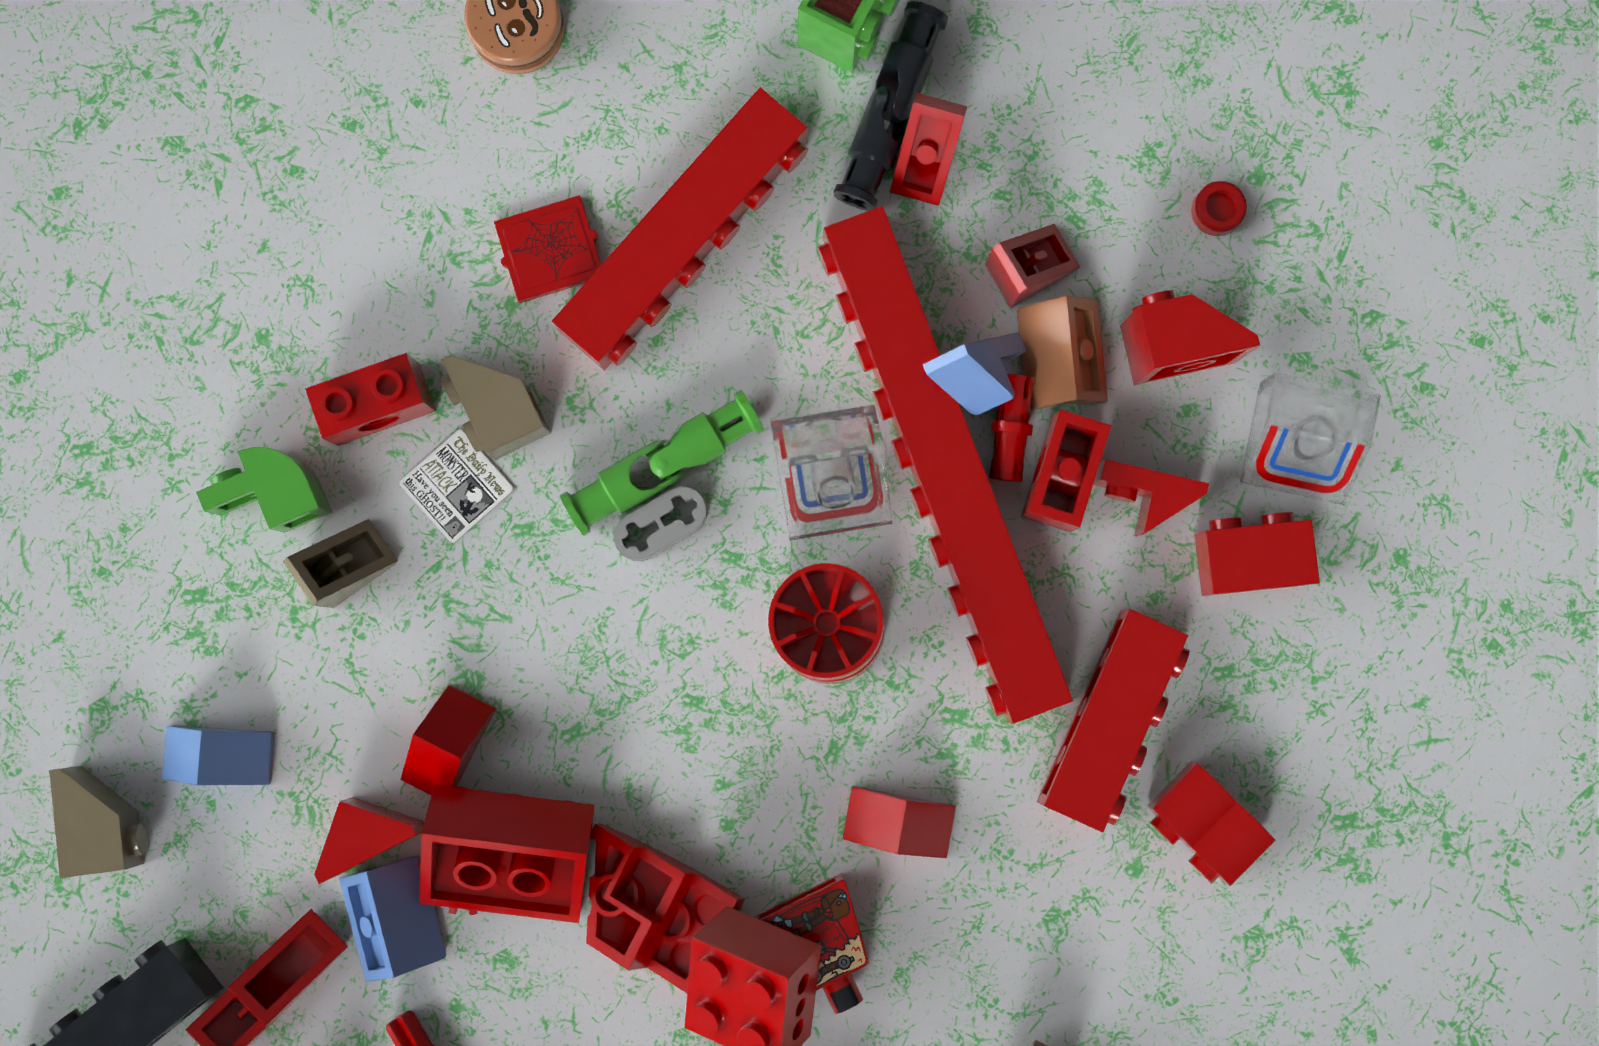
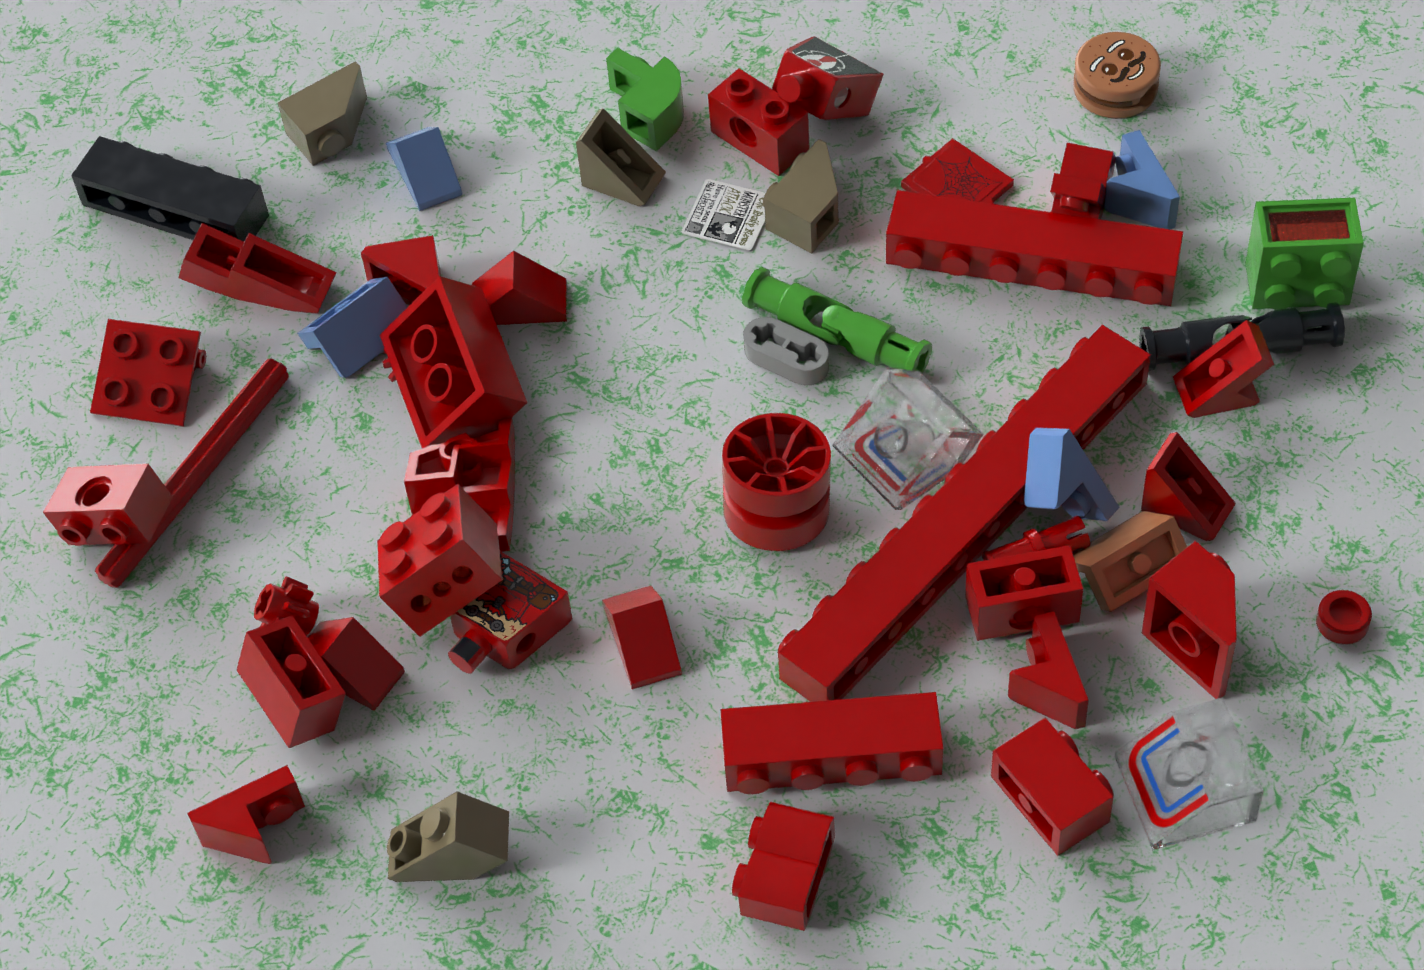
camera: 65 degrees right, 30 degrees down
(363, 309) = (818, 79): none -> red torso
(637, 138) = (1082, 181): none -> red brick
(680, 82) = (1142, 187): none -> medium blue slope

